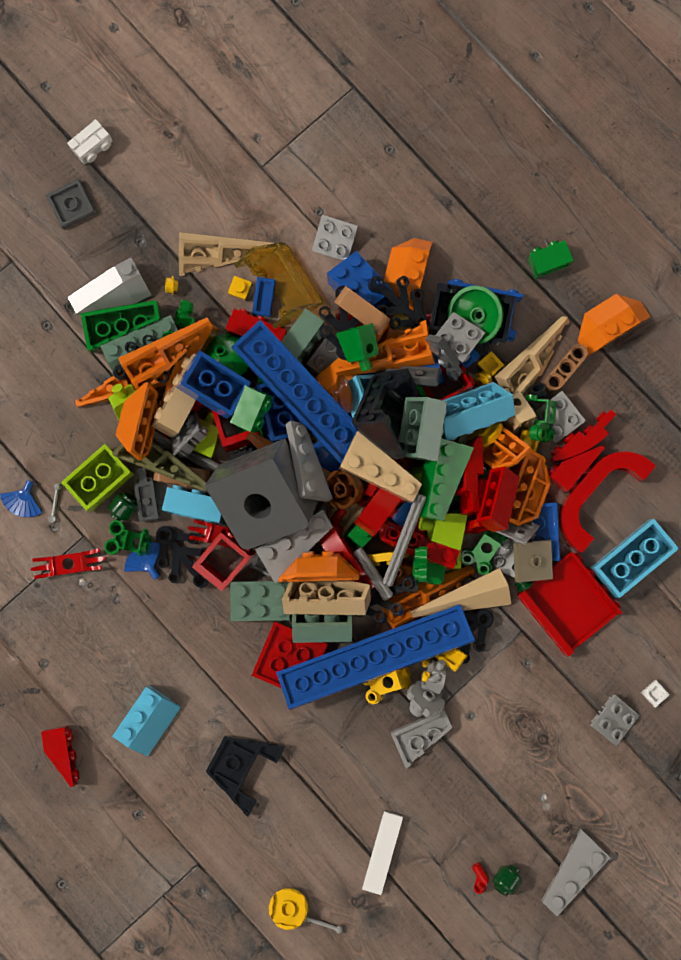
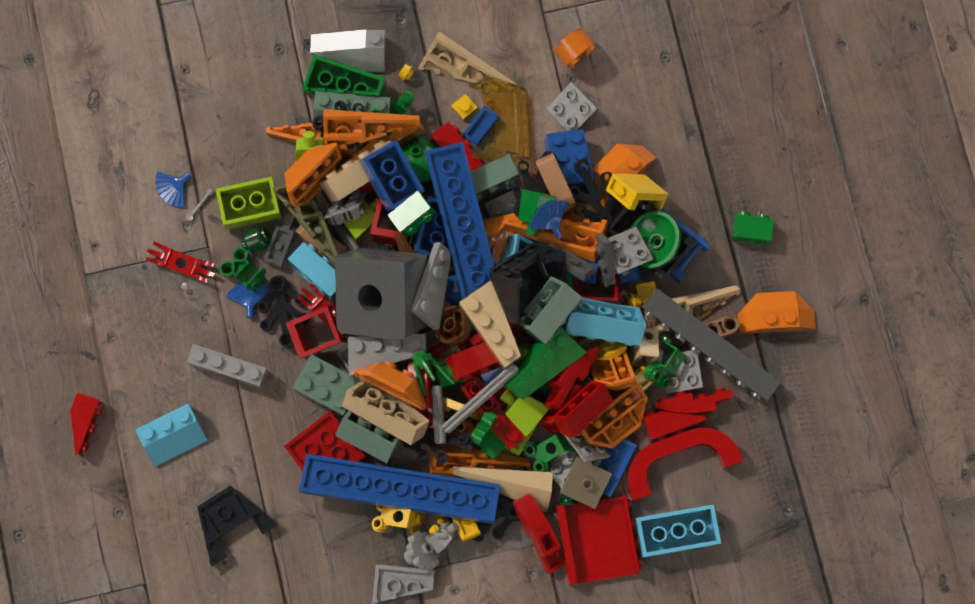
camera: 30 degrees right, 5 degrees down
(161, 633) = (226, 365): none -> light grey arch
(307, 181) = (573, 47): none -> orange brick
(334, 535) = (422, 361): none -> green plant
(376, 345) = (549, 217): none -> blue hand
(433, 278) = (634, 187): none -> yellow panel
(516, 625) = (540, 532): none -> red slope
(572, 379) = (711, 344): none -> dark grey brick

